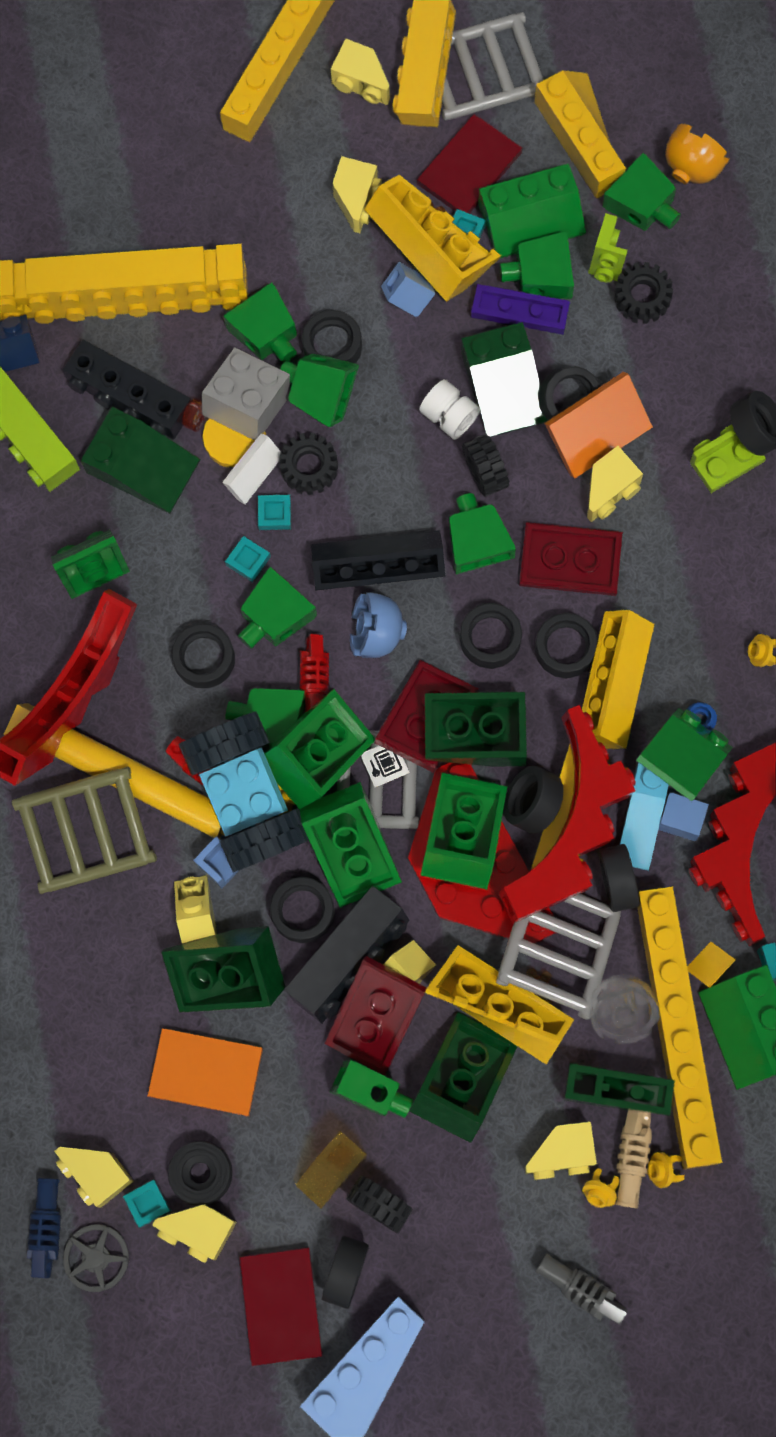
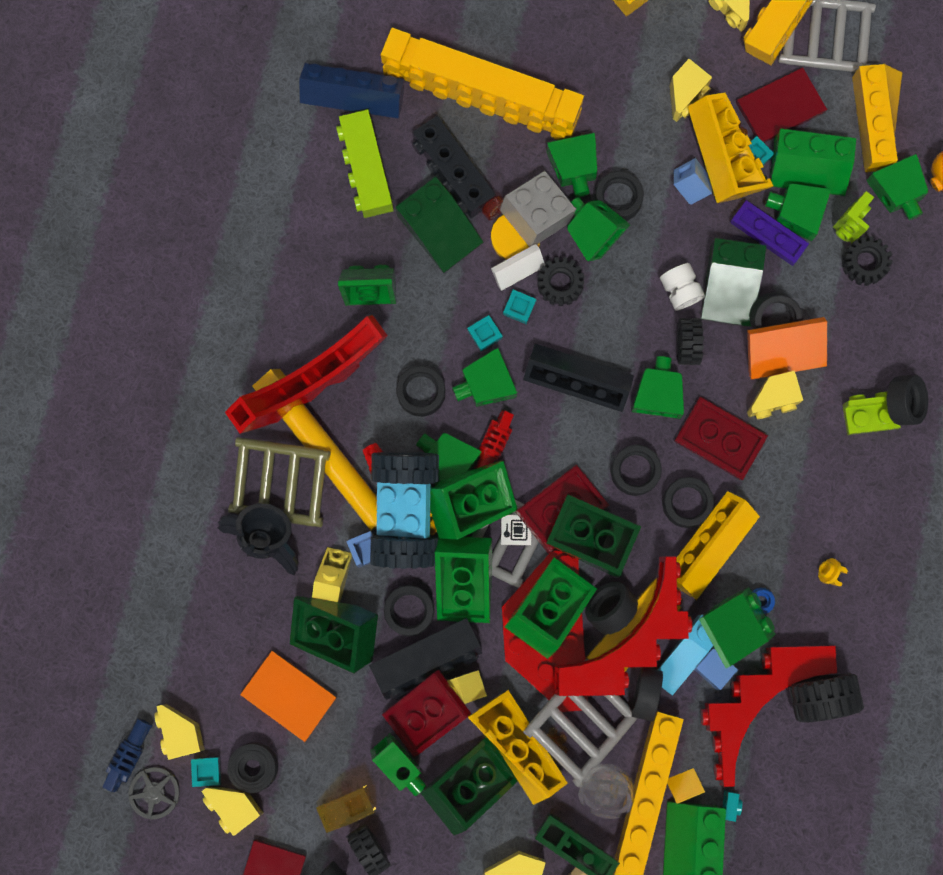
camera: 20 degrees right, 5 degrees up
(90, 896) = (262, 533): none -> black helmet
(377, 626) = (556, 426): medium blue cylinder -> none

